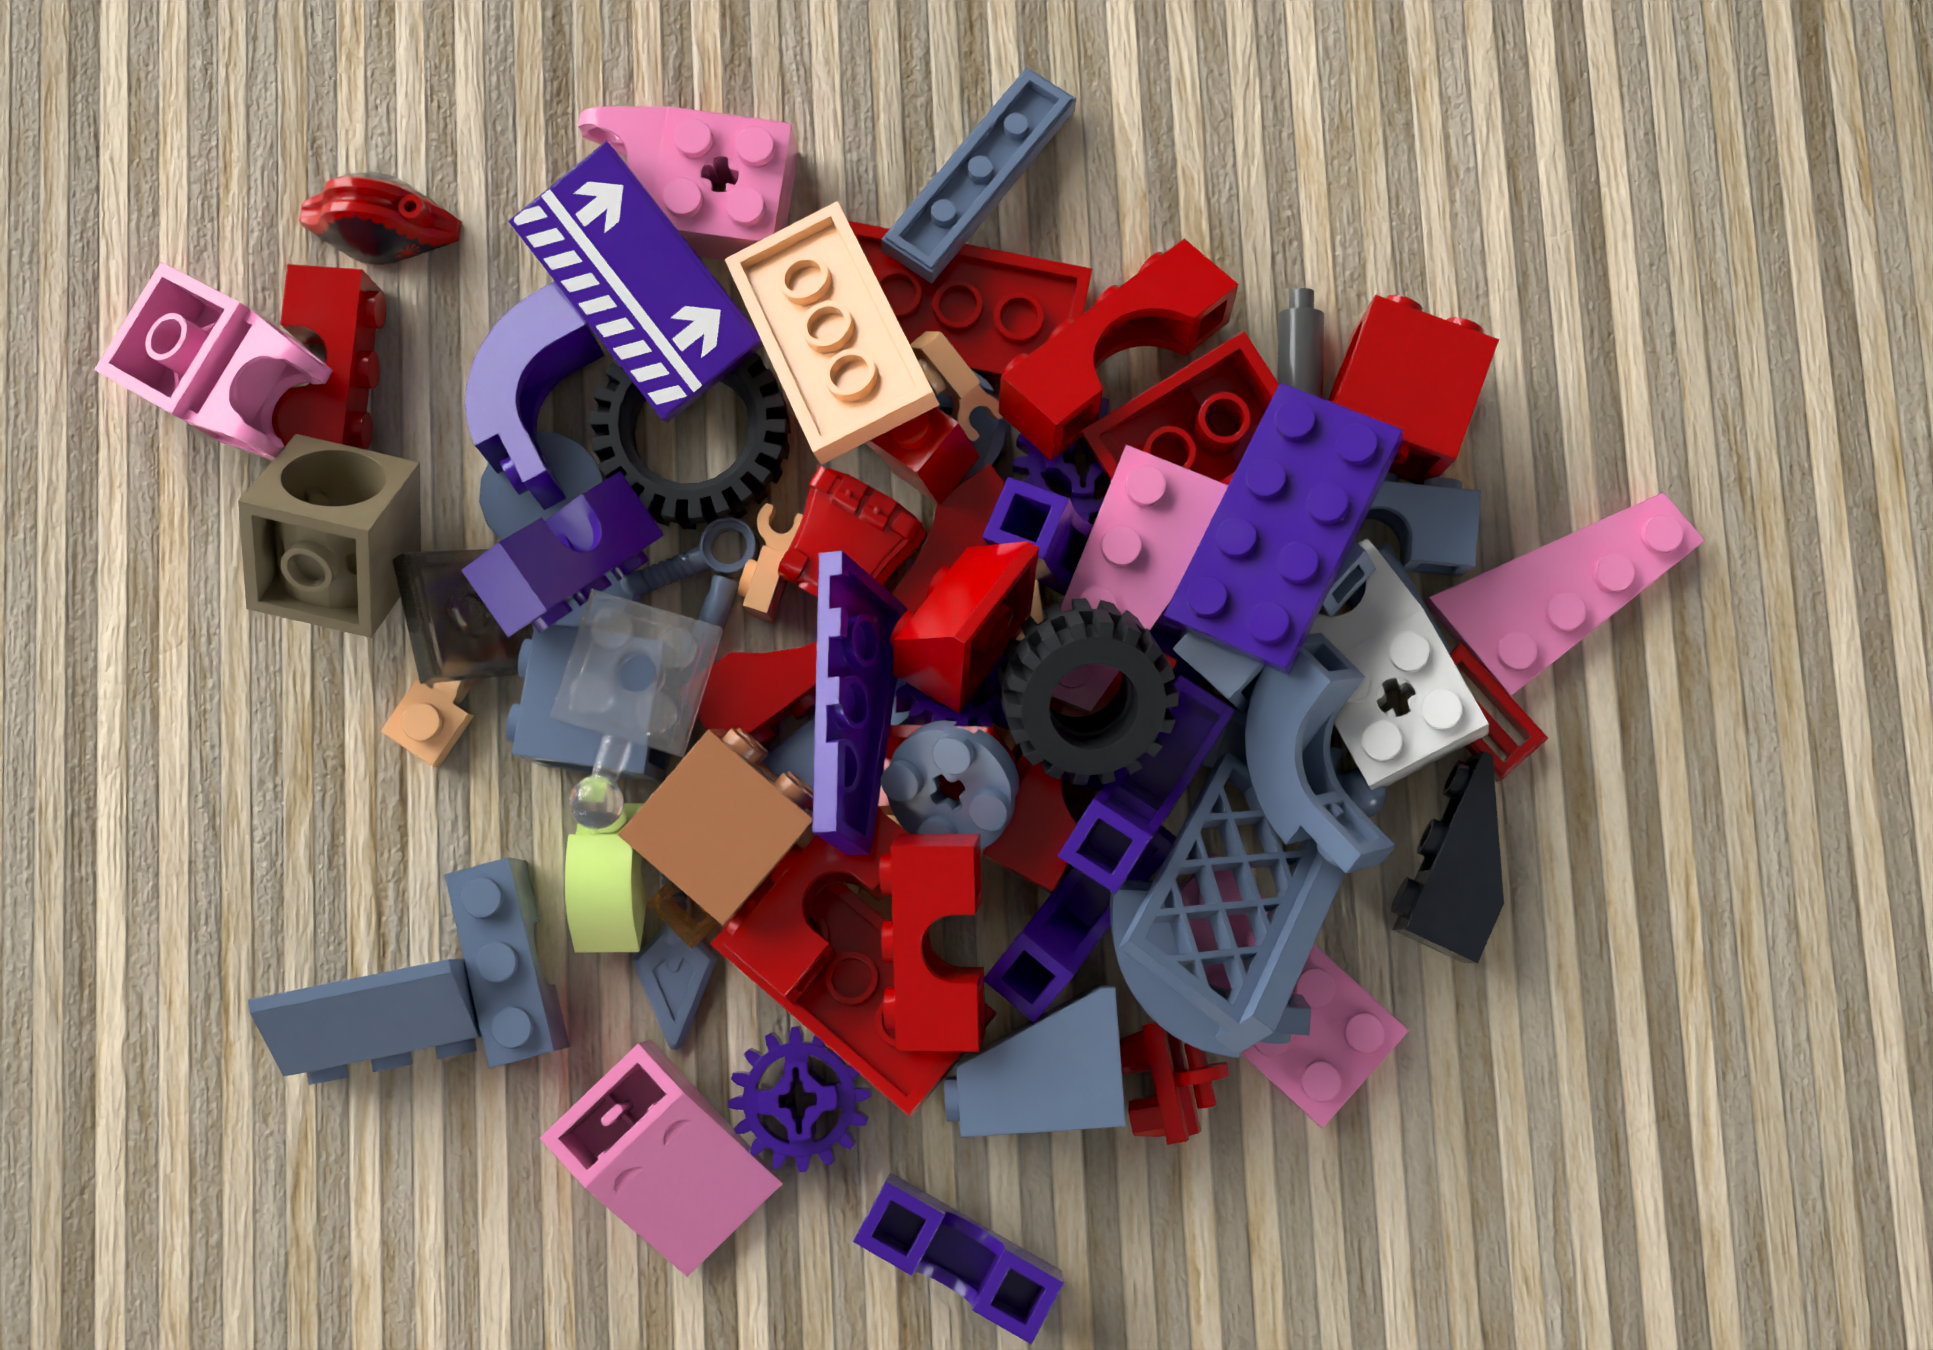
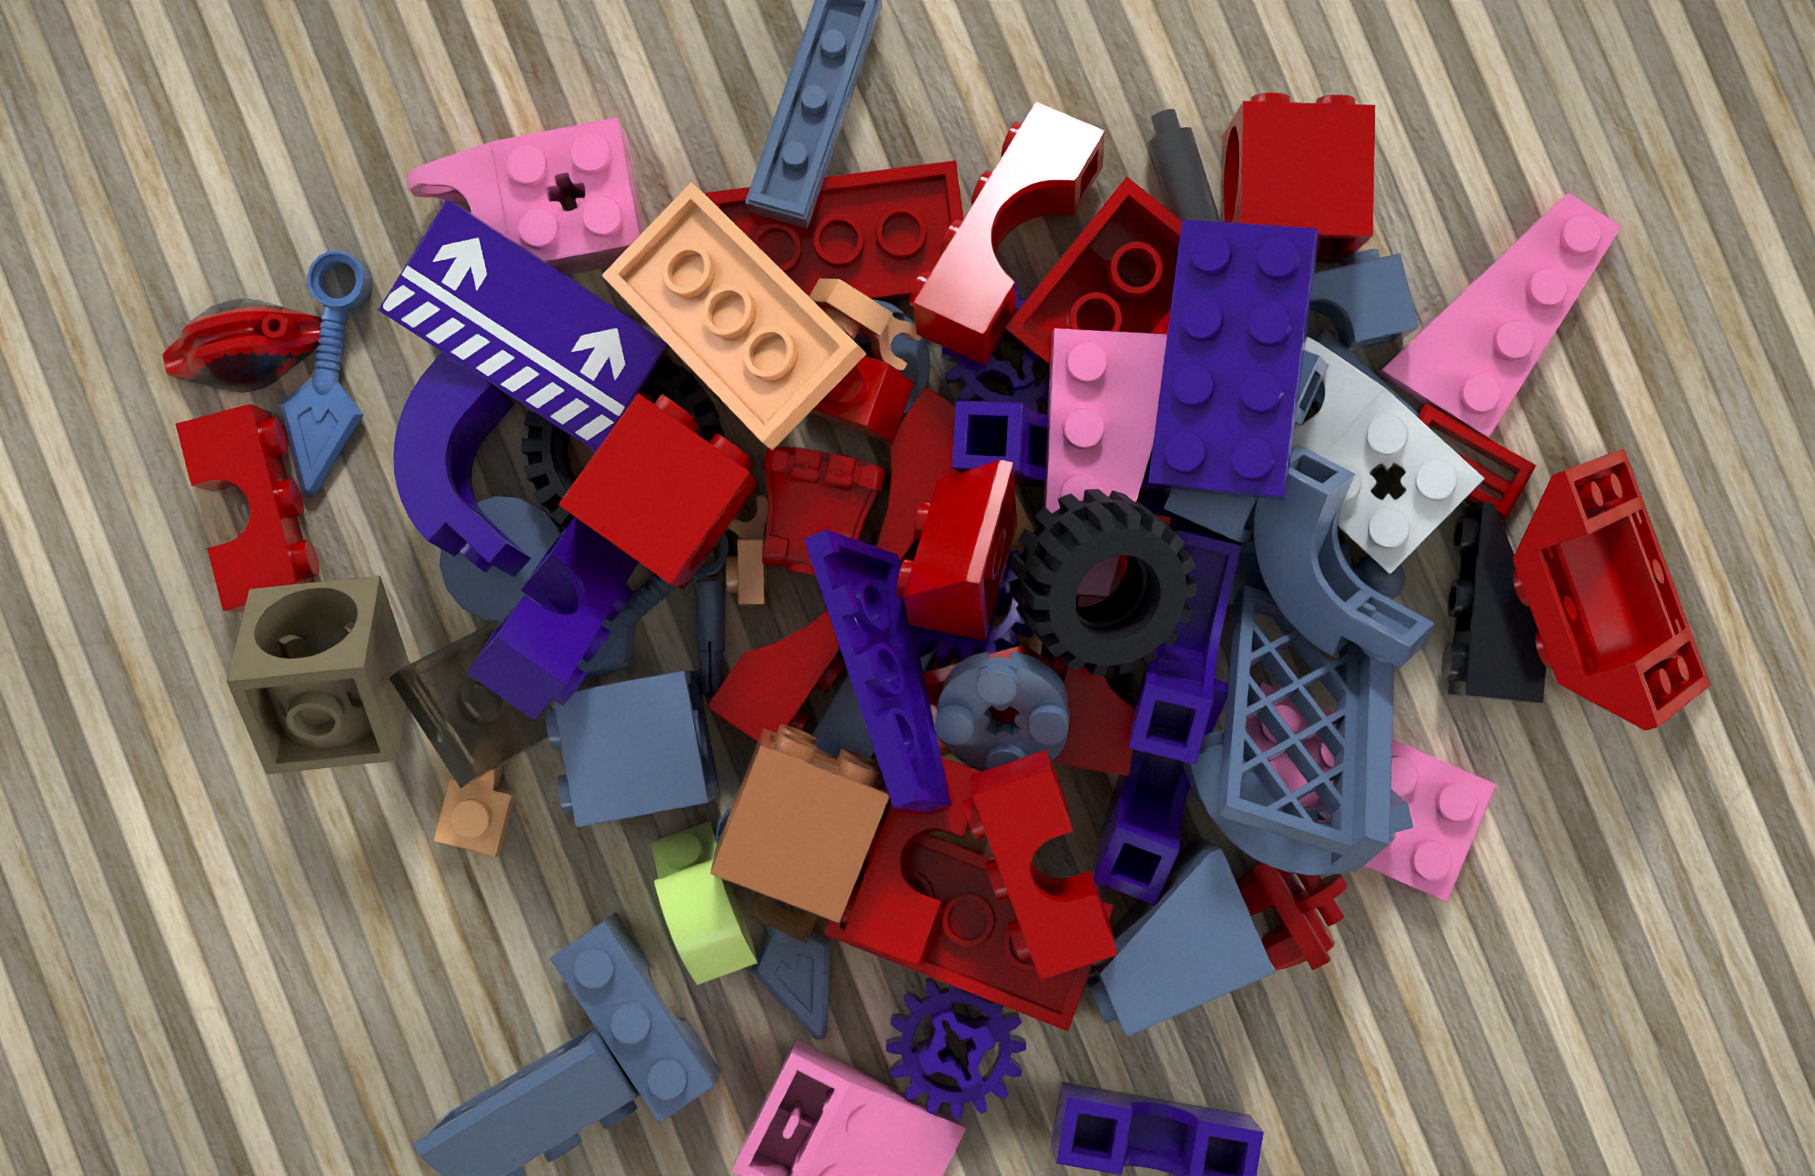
camera: 25 degrees left, 5 degrees up
(209, 361) = (136, 547): bright pink brick -> none
(426, 303) = (321, 412): none -> medium blue piece
(655, 717) = (640, 750): clear plate -> none
(707, 468) = (662, 489): none -> red brick
(1574, 877) = (1607, 596): none -> red slope

